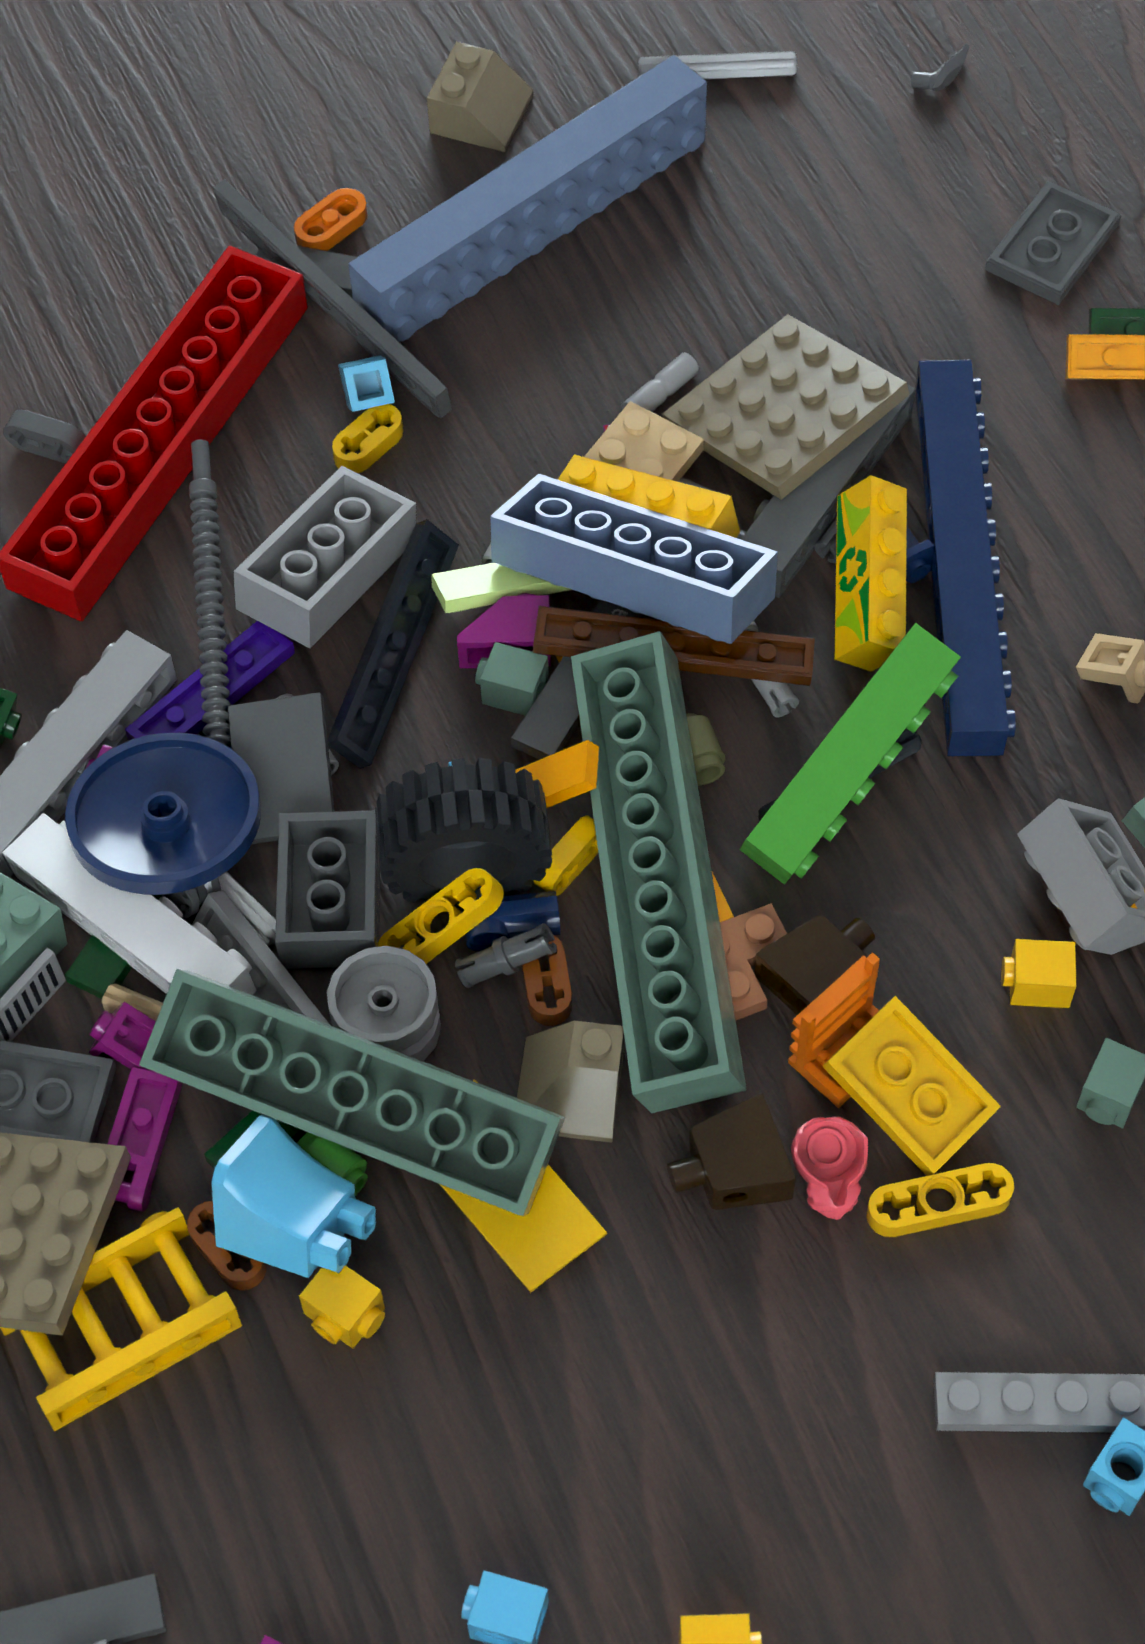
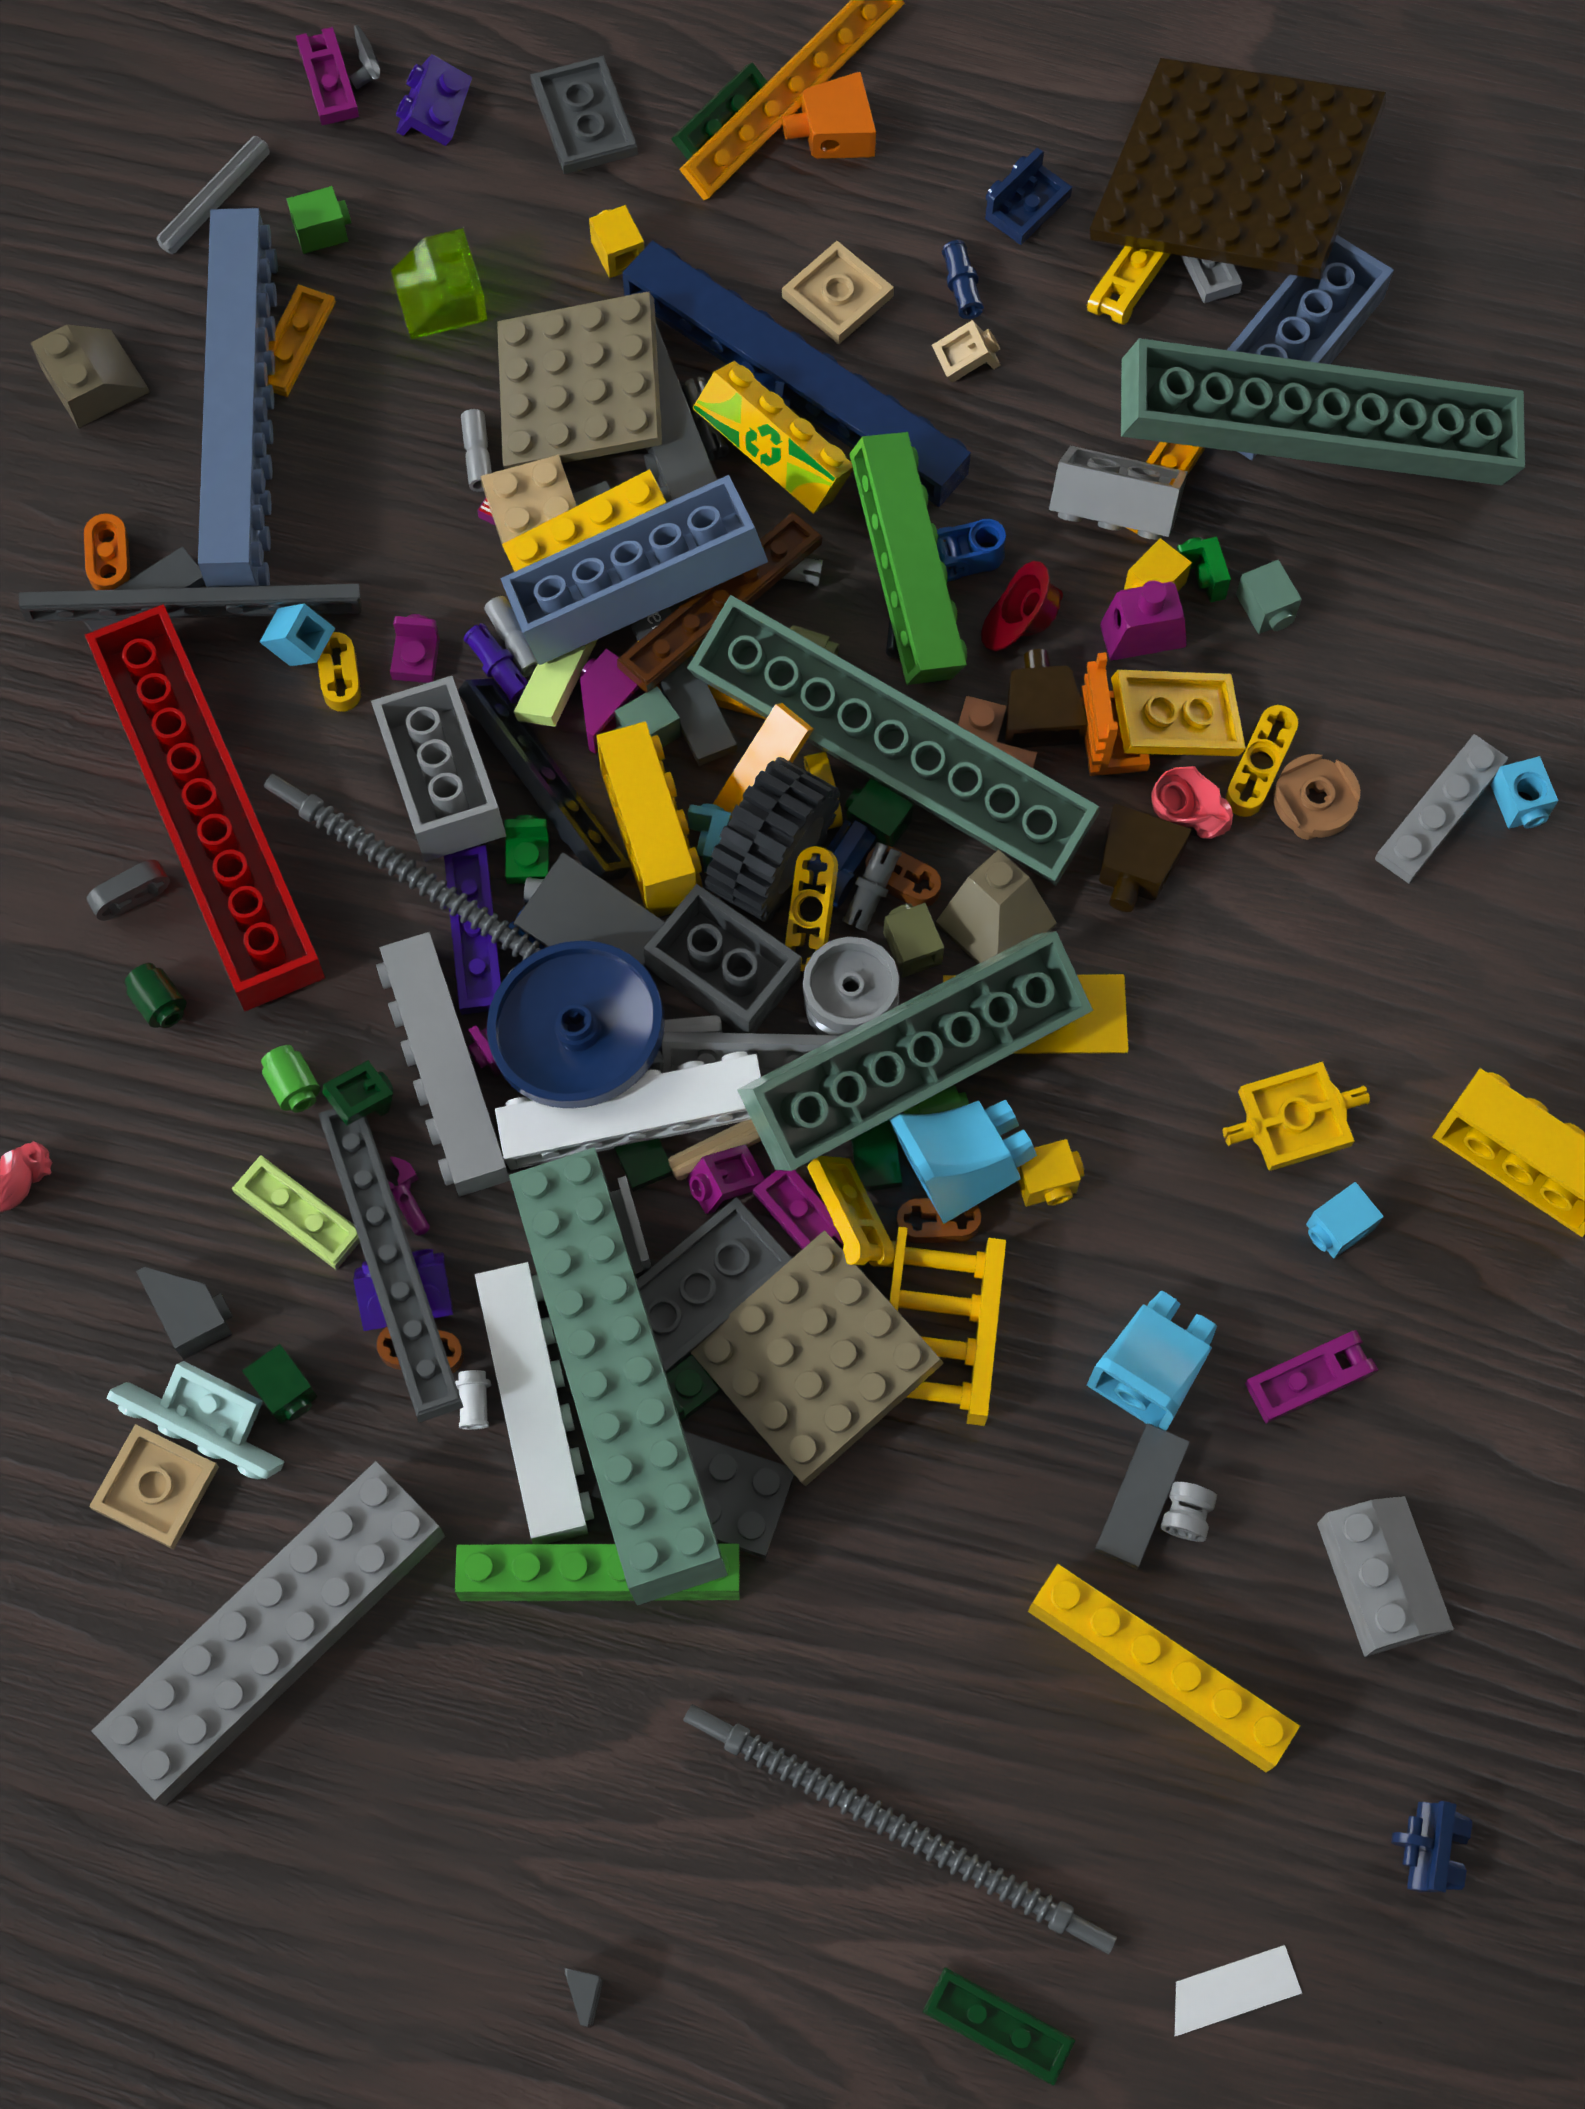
camera: 55 degrees left, 10 degrees up
(167, 1158) = (851, 1212): none -> yellow plate
(215, 1533) = (1153, 1362): none -> medium azure hips
(323, 673) = (526, 848): none -> green bracket
(415, 724) = (648, 817): none -> yellow brick
(435, 474) = (415, 649): none -> magenta bracket
(475, 534) = (496, 661): none -> dark purple pin
(485, 1027) = (913, 939): none -> olive brick
(584, 915) = (881, 811): none -> dark green brick
(585, 1491) = (1296, 1116): none -> yellow plate
(646, 204) = (297, 335): none -> light orange tile
(761, 140) = (319, 219): none -> bright green brick
(787, 259) = (439, 285): none -> clear neon green slope
(898, 58) = (327, 76): none -> magenta plate
(903, 889) = (1023, 609): none -> dark red piece
(911, 795) = (963, 549): none -> blue piece
(951, 1303) = (1308, 817): none -> medium nougat plate
(953, 335) = (615, 239): none -> yellow brick
(954, 137) = (433, 100): none -> dark purple bracket
(984, 995) = (1144, 621): none -> magenta torso
(1074, 529) = (837, 292): none -> tan plate
(1097, 1006) = (1209, 566): none -> green bracket

